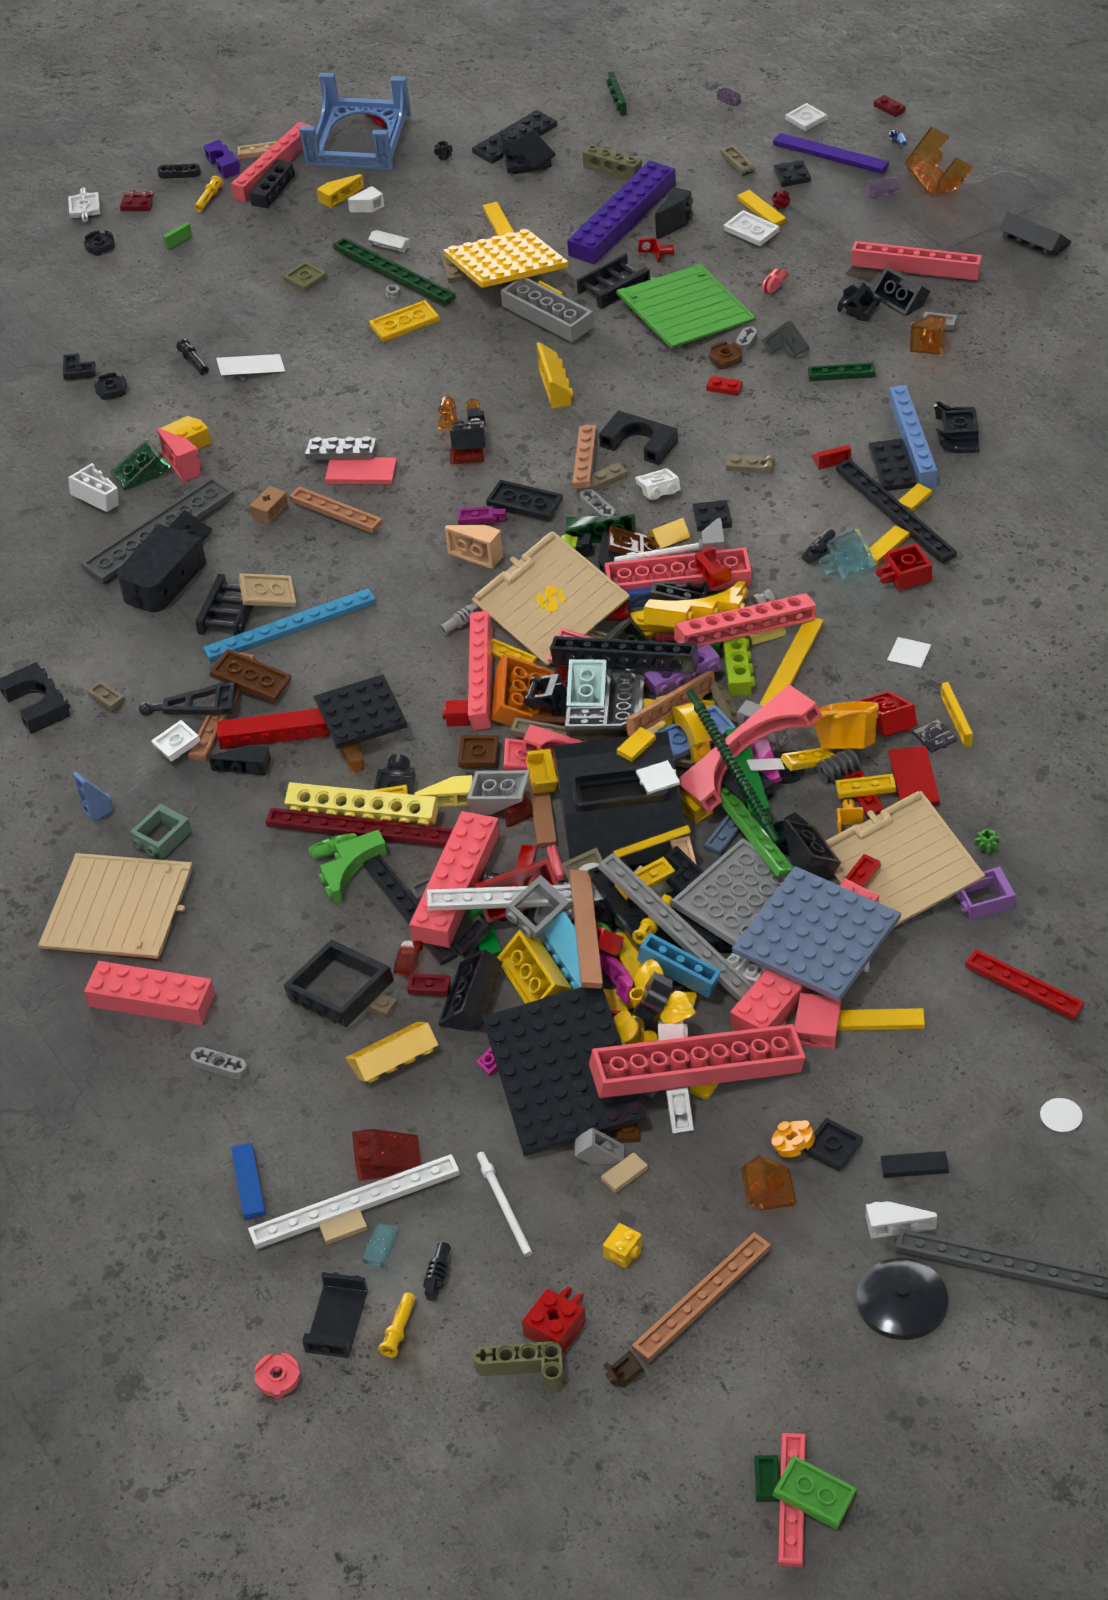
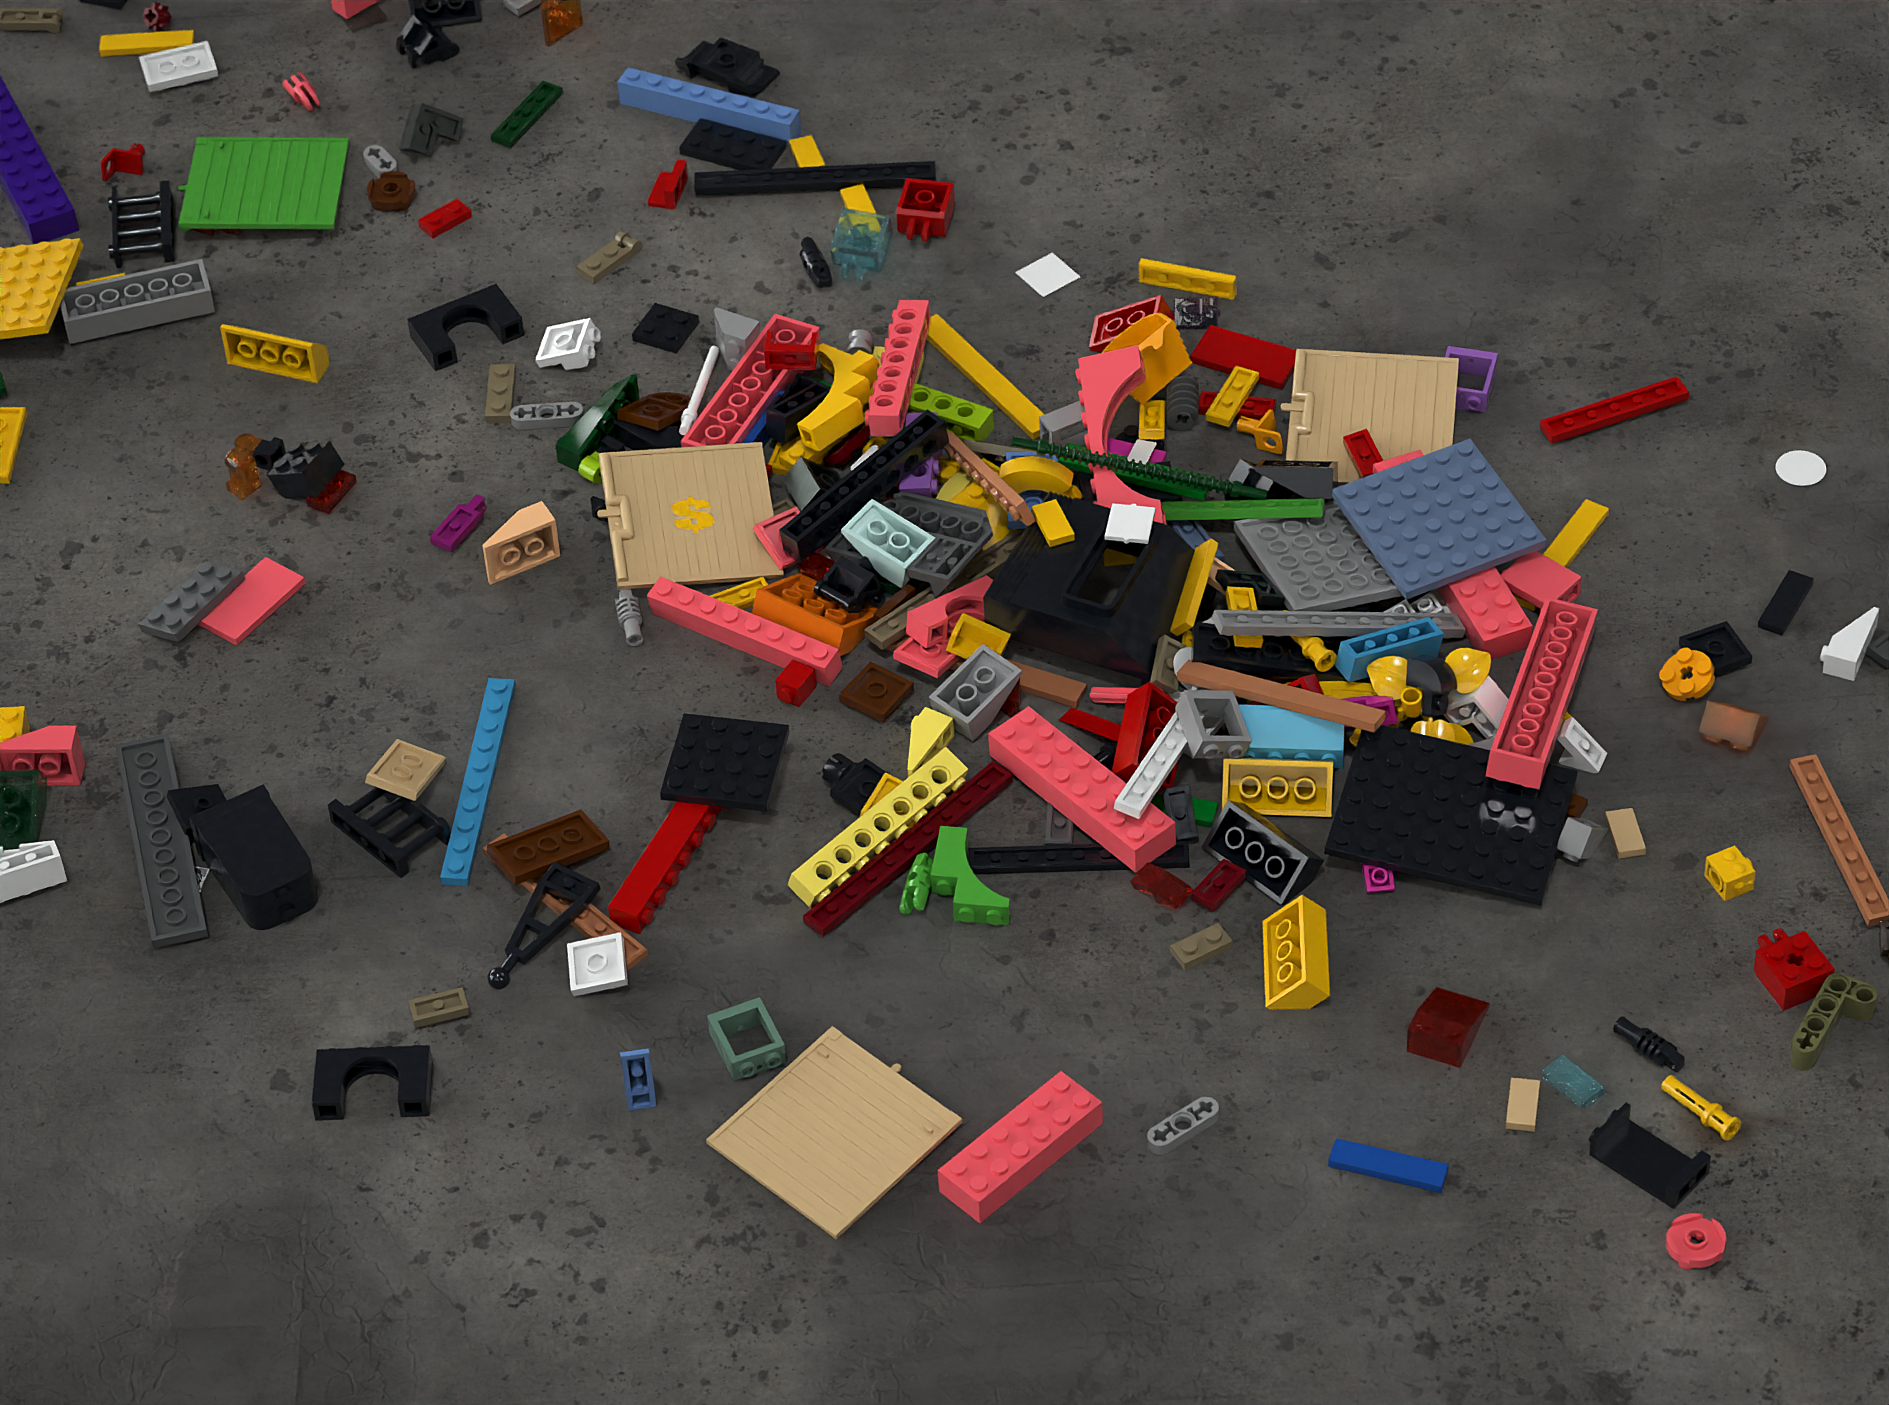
camera: 60 degrees left, 0 degrees up
(246, 759) = (695, 908): black slope -> none
(269, 505) = (231, 711): medium nougat brick -> none
(336, 509) = (306, 652): nougat plate -> none
(344, 1015) = (1142, 928): black window -> none
(354, 757) = (780, 808): clear orange leg -> none
(360, 1198) = (1495, 1080): white plate -> none
(489, 1172) = (1538, 945): white bar -> none
(524, 500) = (472, 473): black plate -> none
(584, 456) = (452, 386): nougat plate -> none
(670, 533) = (660, 372): yellow panel -> none
(673, 212) = (78, 109): black slope -> none
(987, 841) = (1394, 342): bright green gear -> none

